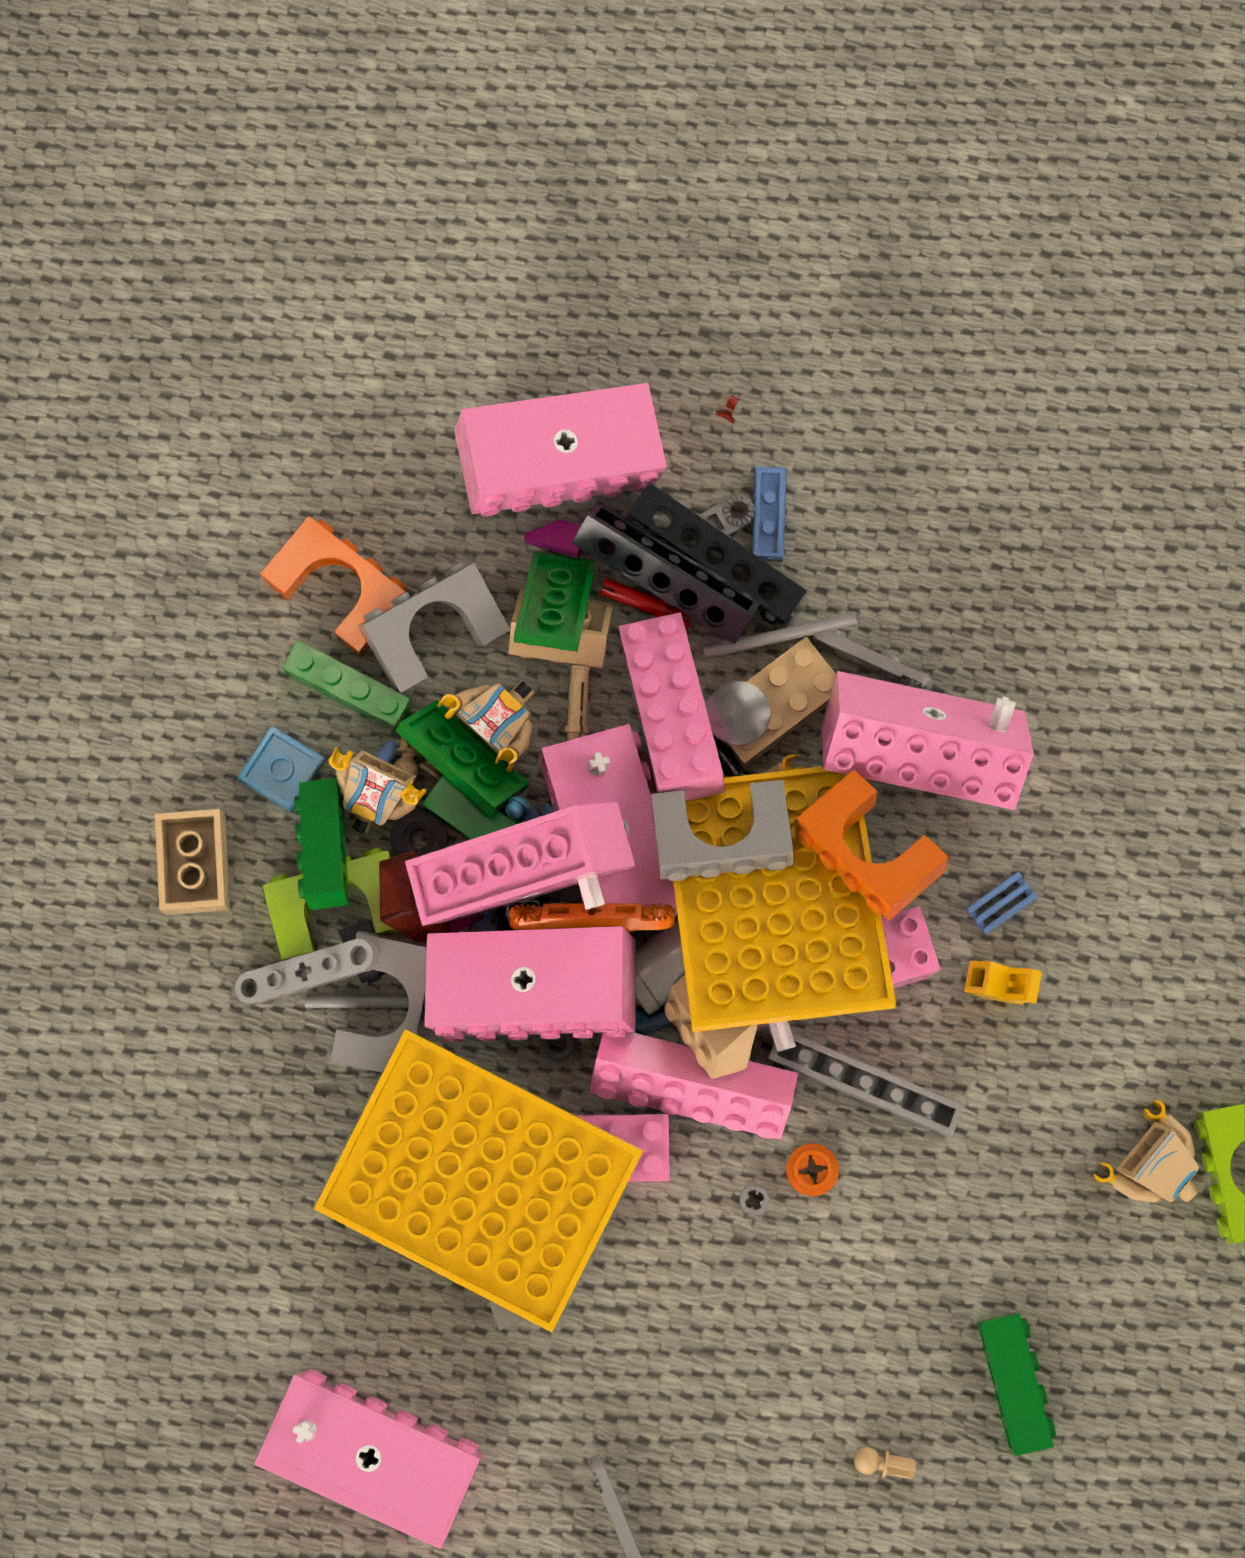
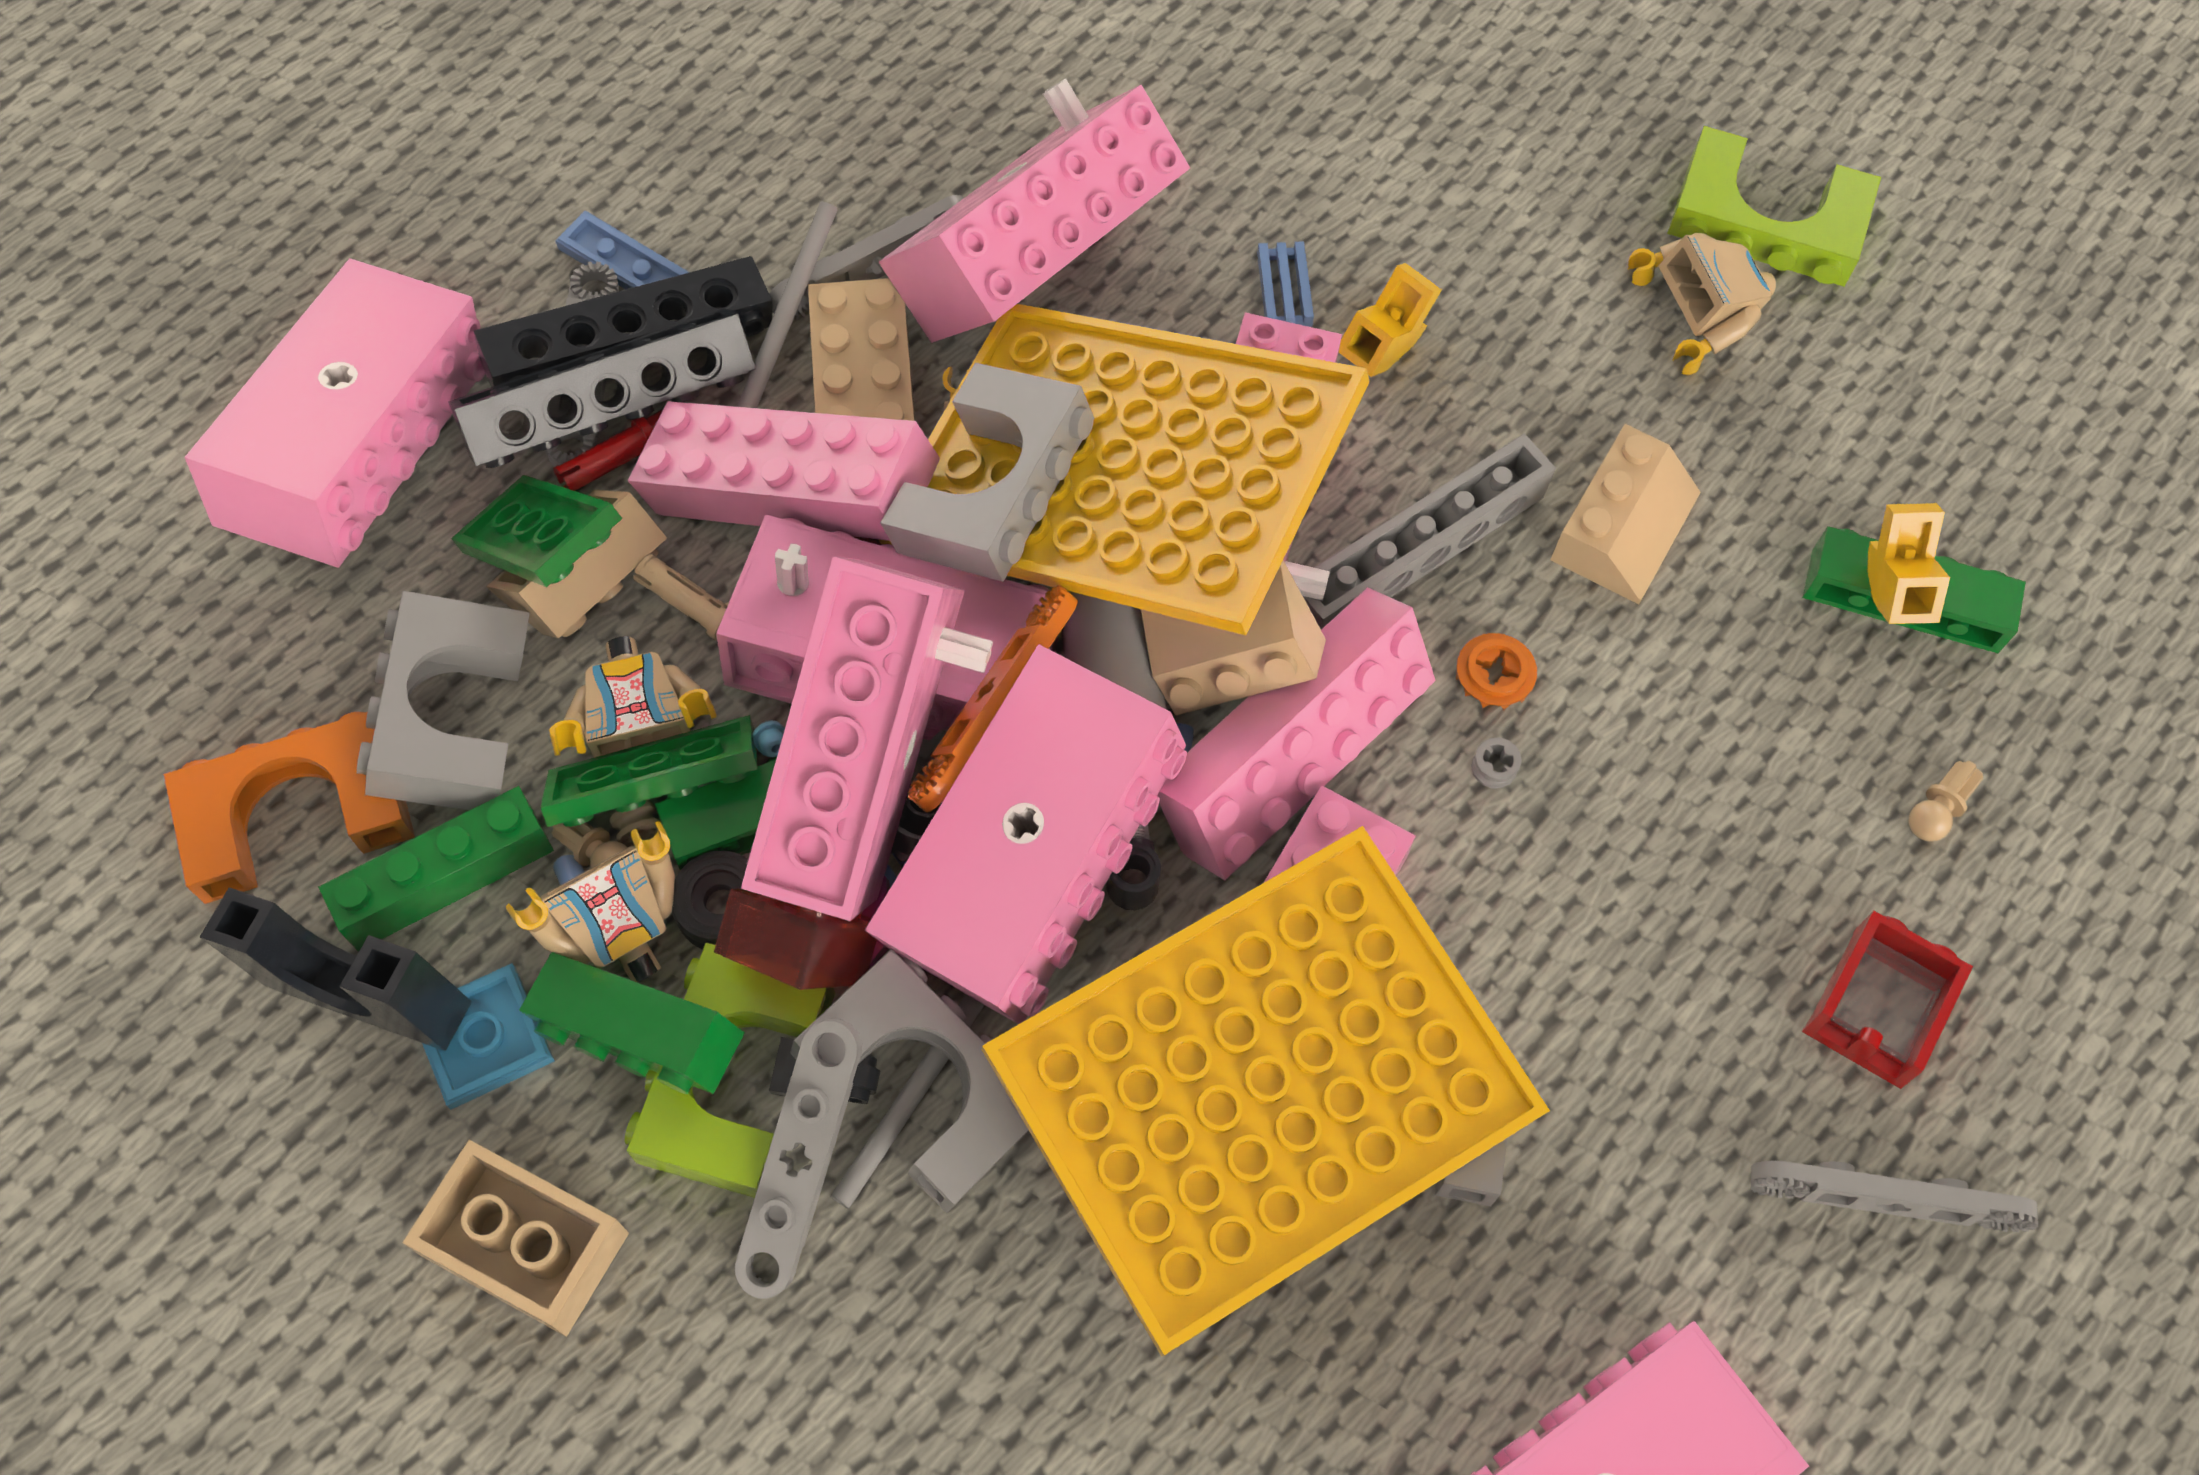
camera: 60 degrees left, 15 degrees down
(265, 711) = (378, 986): none -> black arch
(556, 538) = (458, 499): magenta tile -> none
(731, 403) = (460, 228): clear red piece -> none
(738, 713) = (848, 388): flat silver dish -> none
(739, 1484) = (1888, 999): none -> window
(886, 885) = (1191, 319): orange arch -> none
(961, 1194) = (1628, 515): none -> tan slope
(1005, 1372) = (1902, 565): none -> yellow brick

